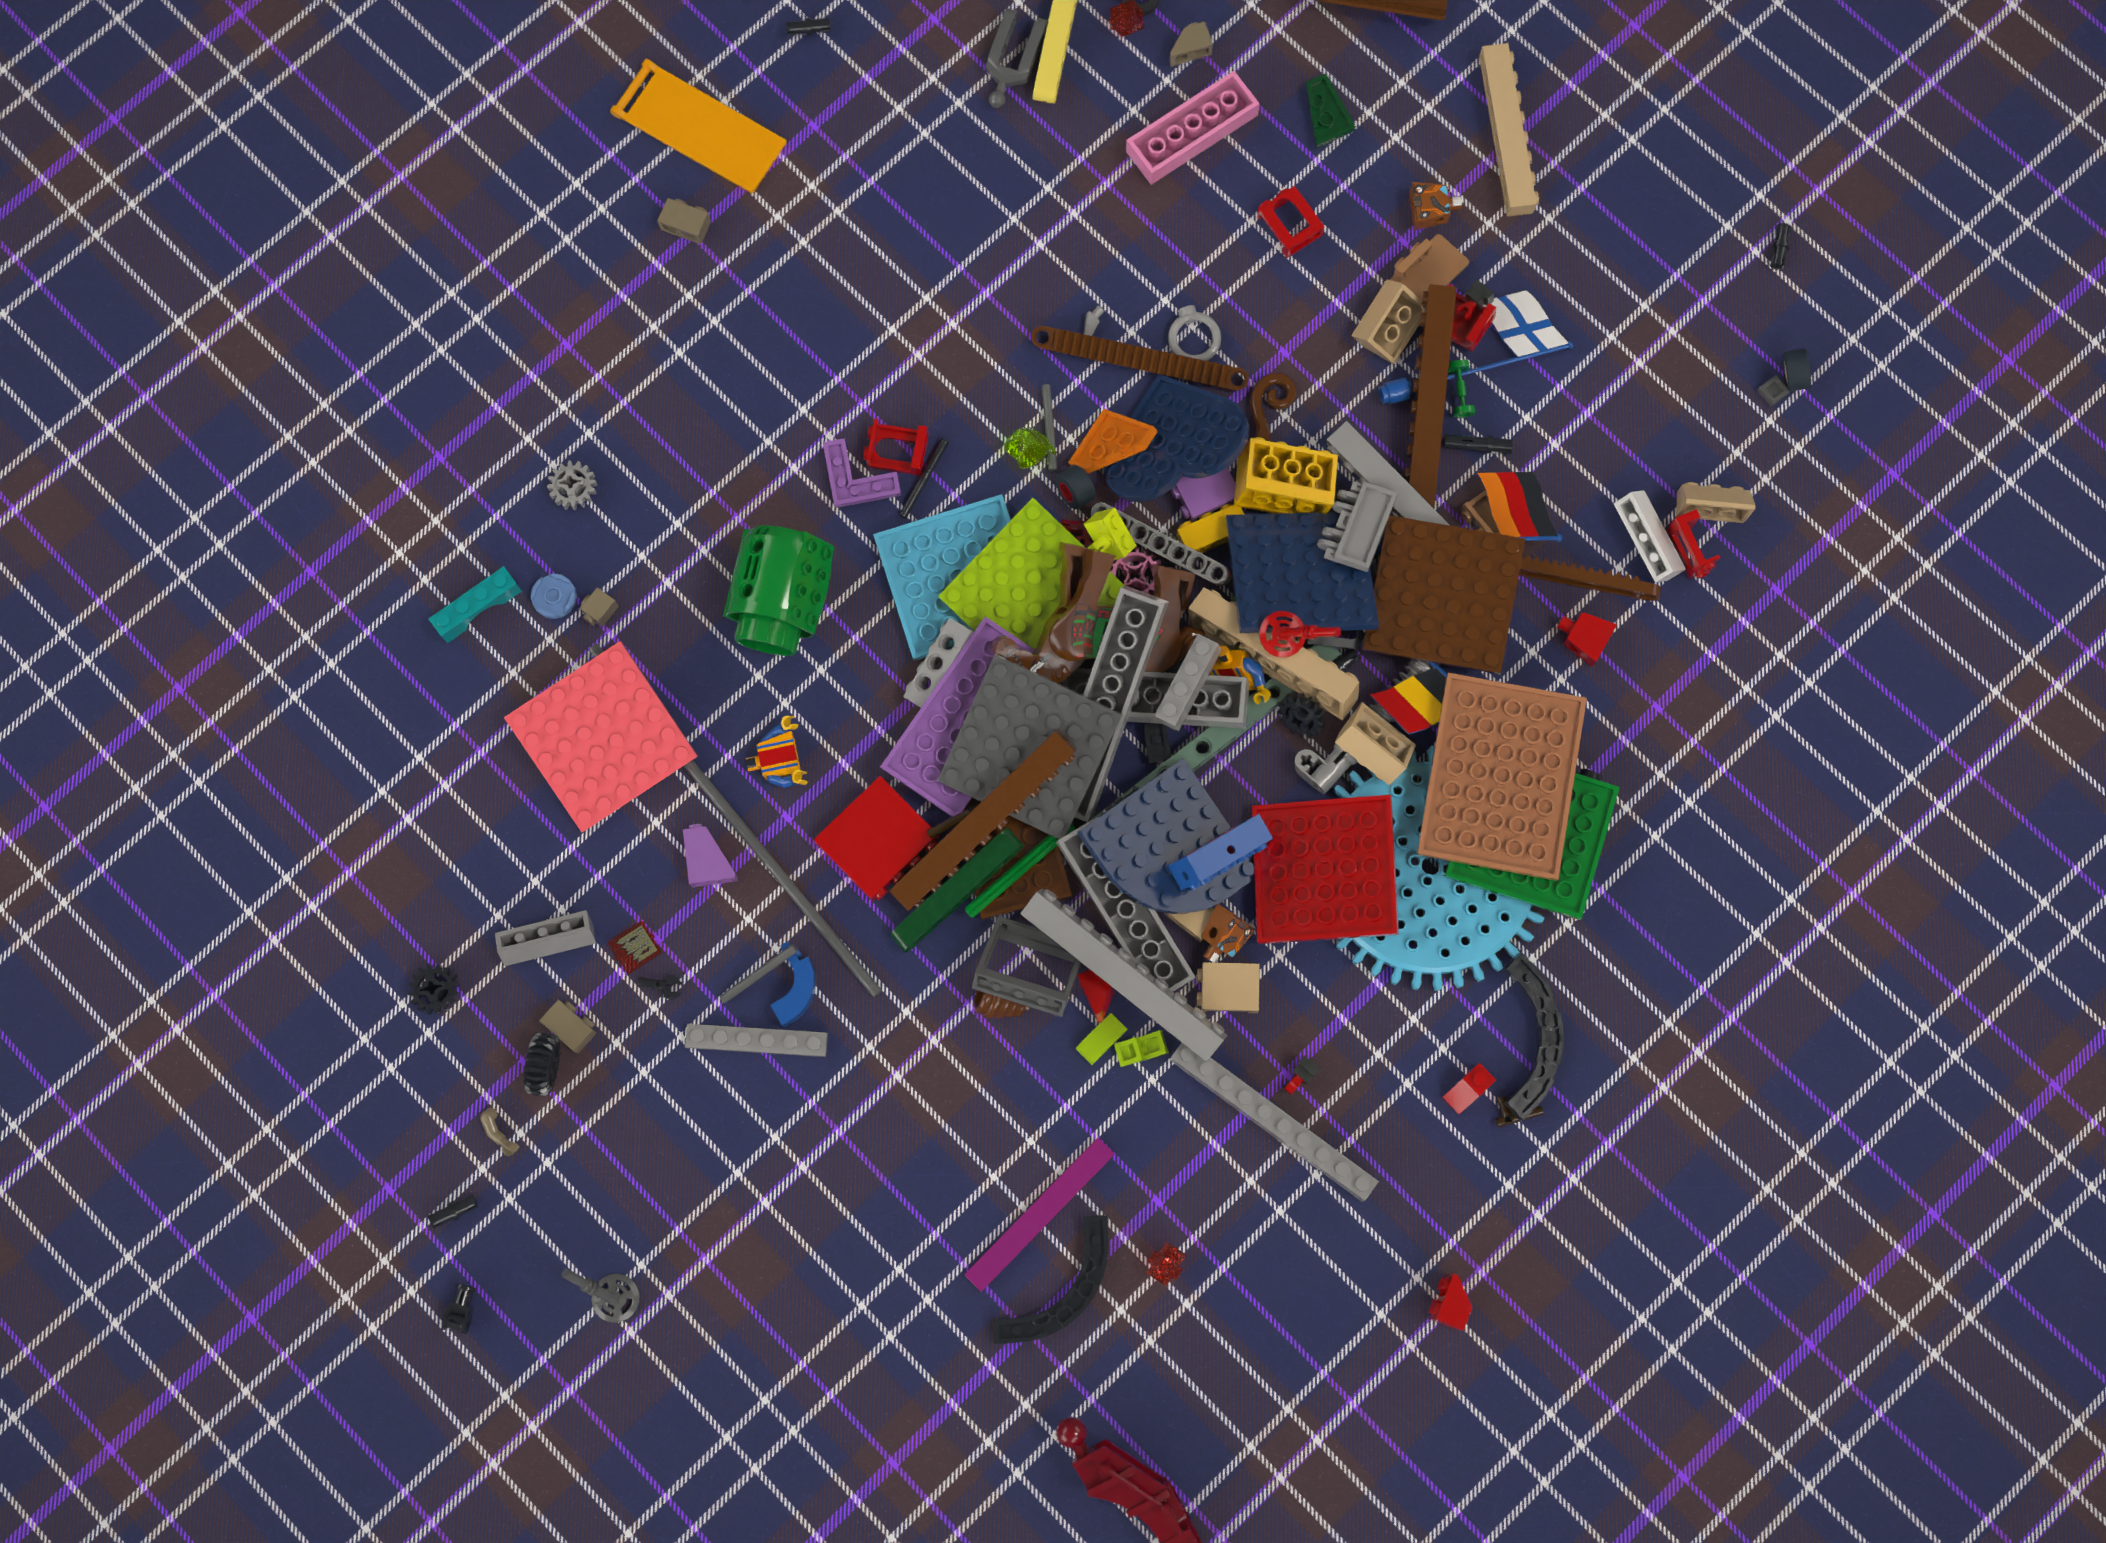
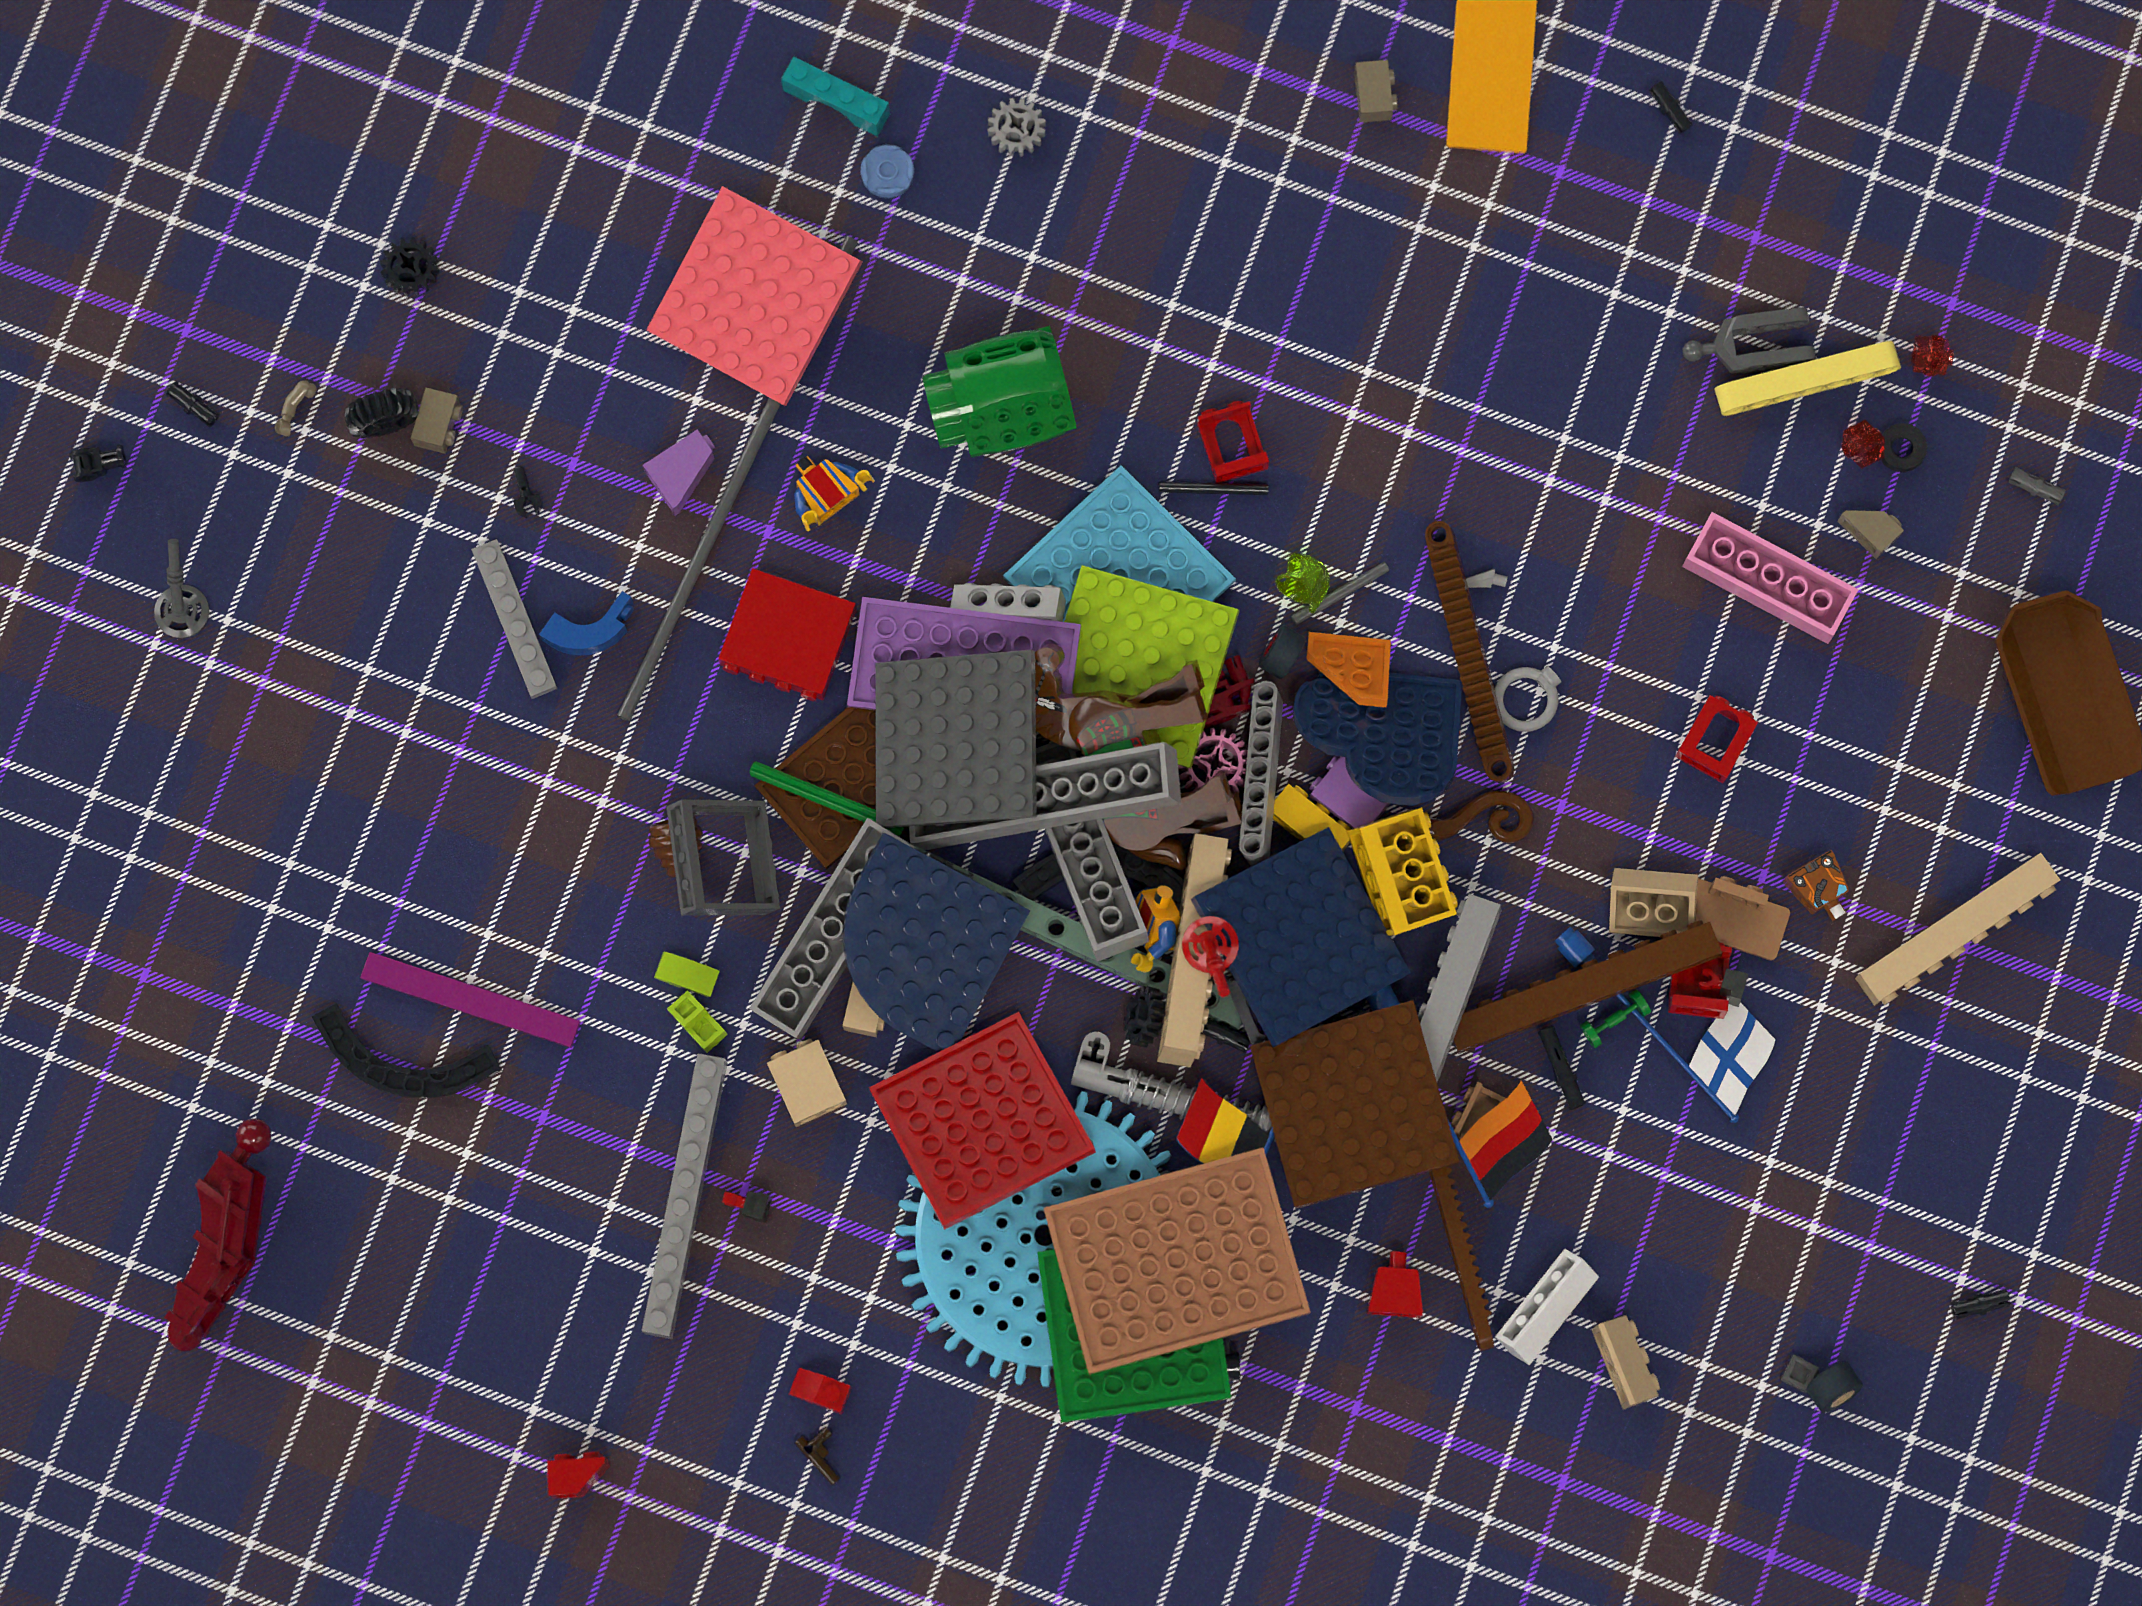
camera: 60 degrees right, 0 degrees up
(545, 938) = (515, 350): light grey brick -> none
(598, 607) = (895, 222): dark tan brick -> none
(635, 947) = (552, 446): piece -> none
(759, 973) = (583, 584): dark grey bar -> none
(850, 491) = (1157, 417): medium lavender plate -> none
(948, 824) = (833, 696): dark brown hose -> none
(956, 890) = (771, 743): dark green beam -> none
(986, 817) = (854, 731): reddish brown brick -> none
(1097, 993) = (735, 944): red slope -> none
(1109, 534) = (1239, 713): neon yellow brick -> none
(1124, 974) = (759, 959): light grey brick -> none
(1162, 1267) = (477, 1154): clear red brick -> none
(1188, 682) = (1108, 871): light grey brick -> none
(1221, 853) = (944, 999): brick -> none
(1225, 933) = (862, 1049): dark orange torso -> none
(1327, 111) = (1871, 719): dark green wing -> none
(1361, 525) = (1385, 975): light grey hinge -> none
(1375, 744) = (1148, 1109): tan slope -> none
(1550, 1036) = (916, 1454): black plate -> none
(1682, 526) = (1577, 1336): red panel -> none

